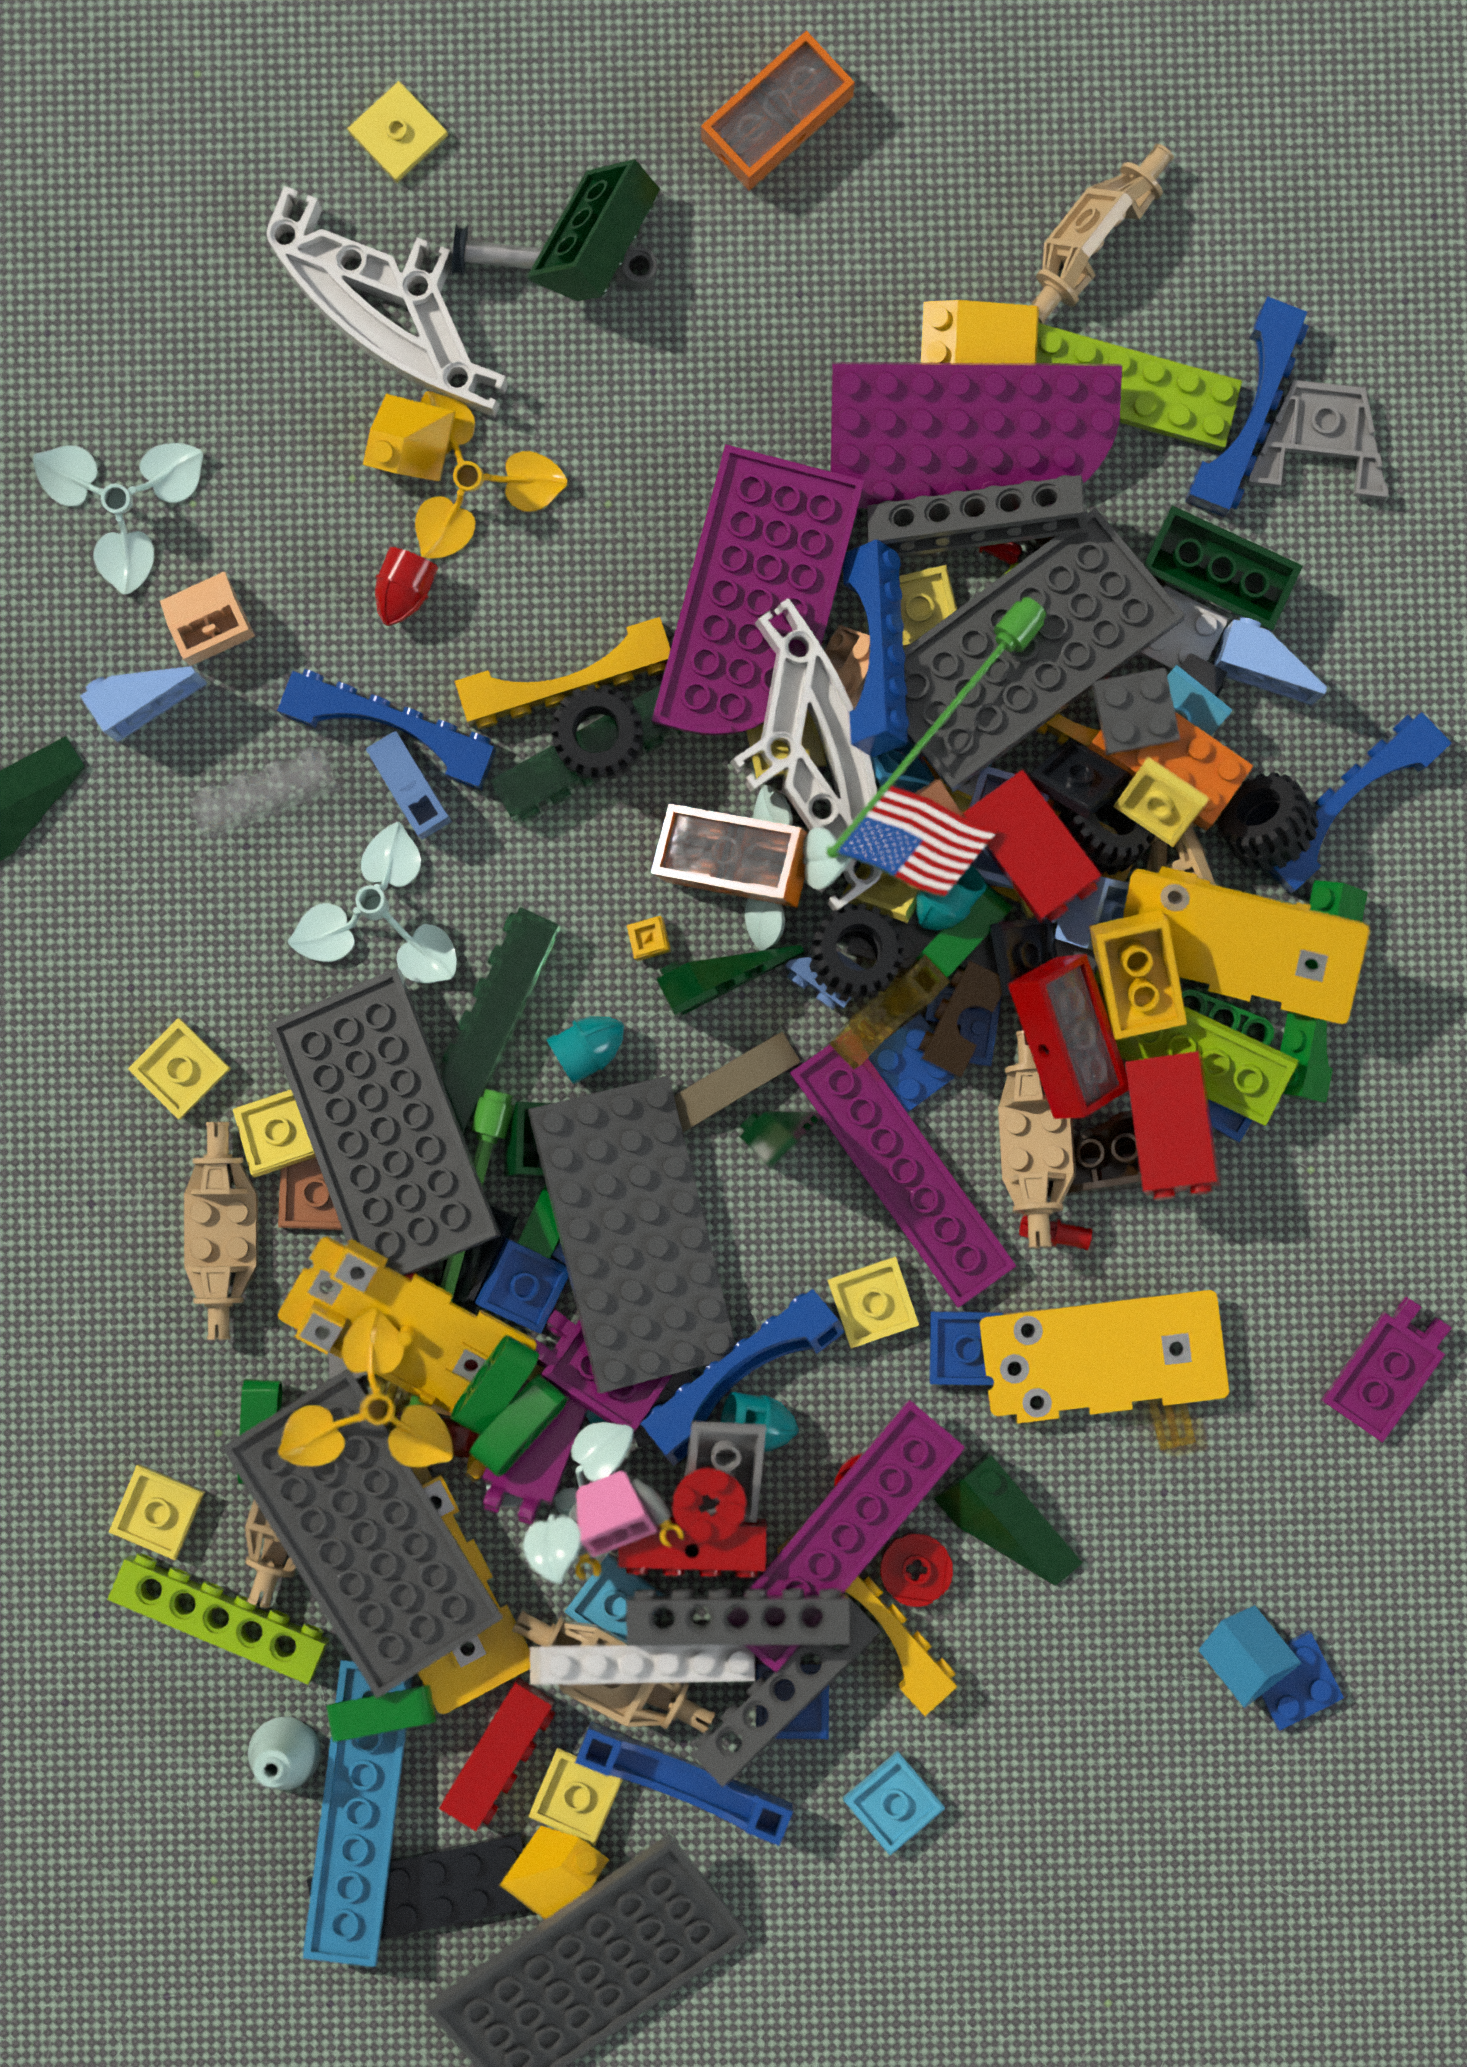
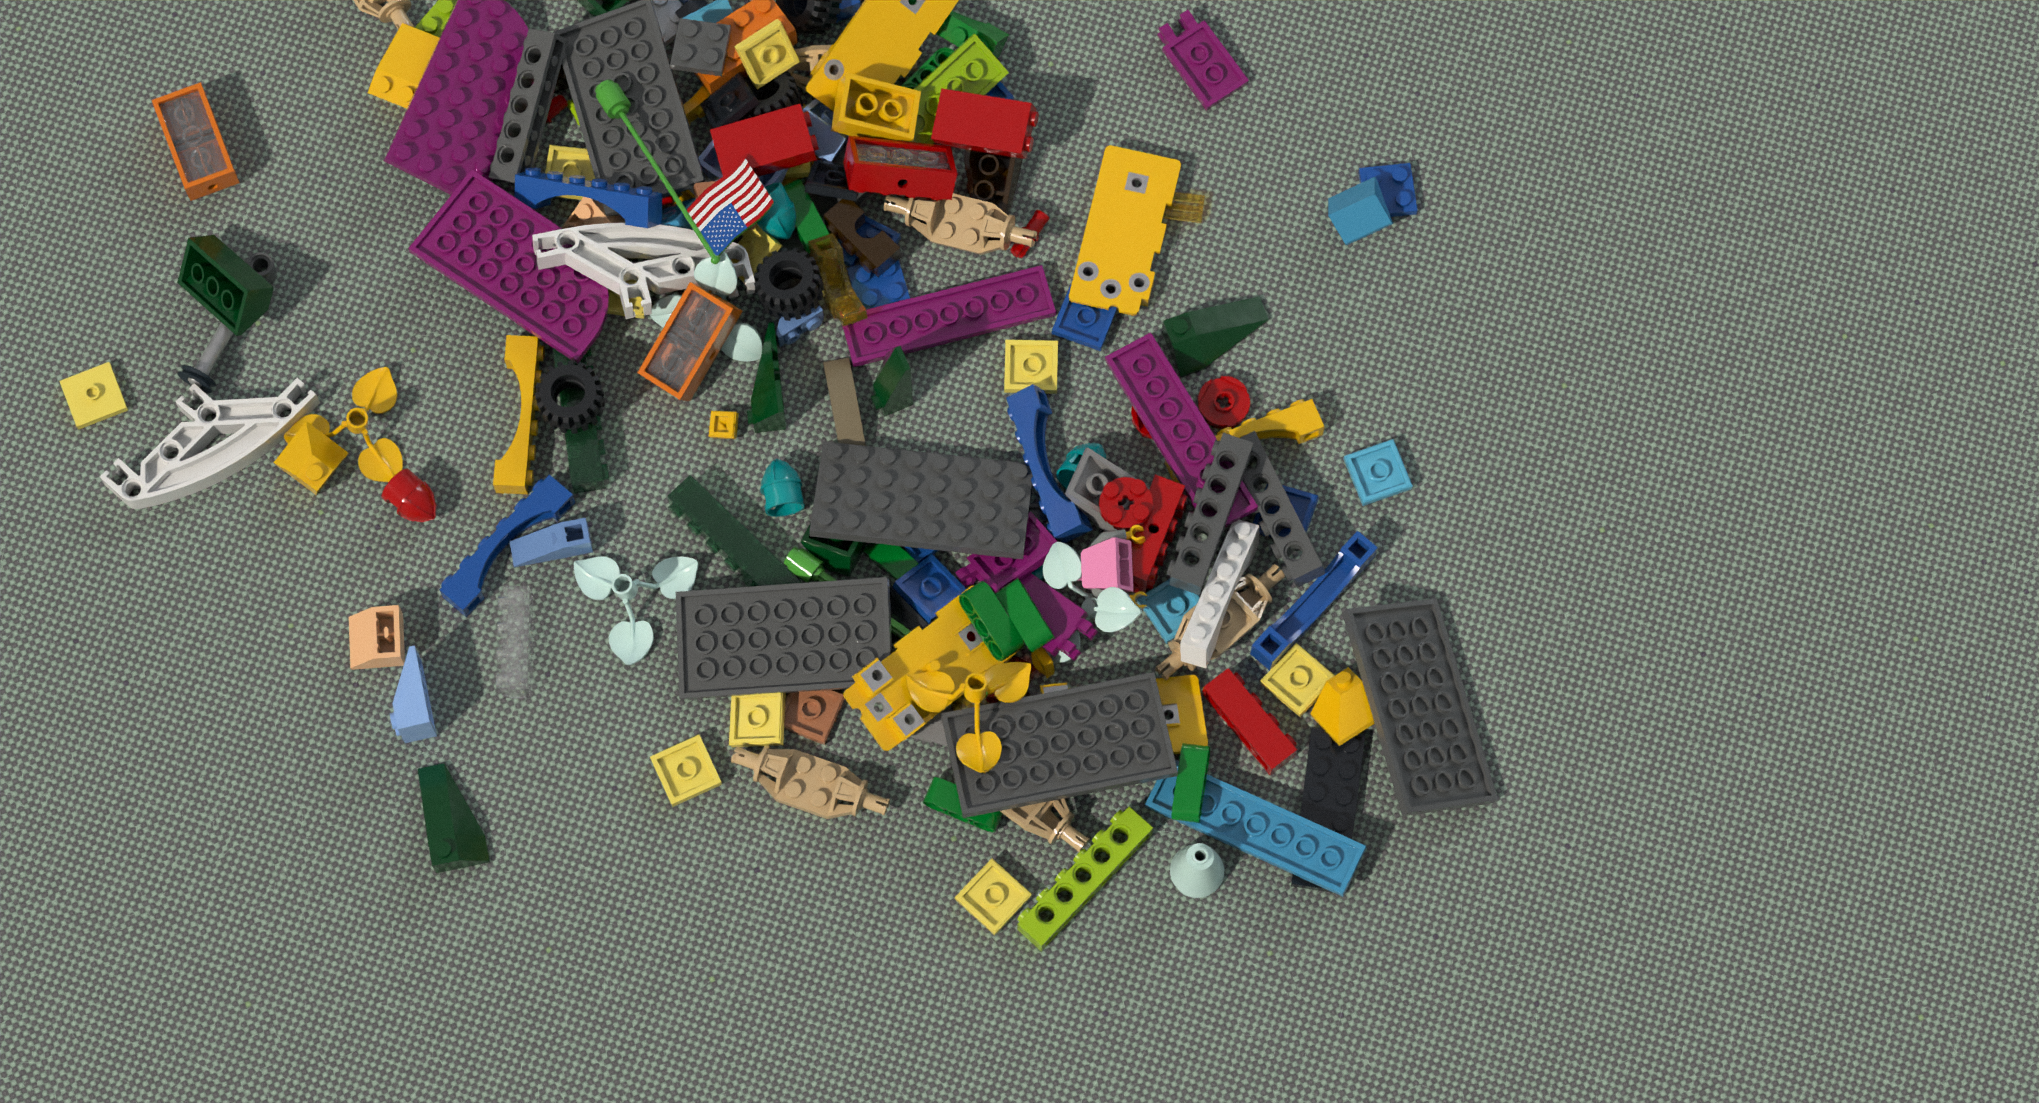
camera: 75 degrees left, 15 degrees down
(121, 557) = (266, 630): light aqua plant -> none

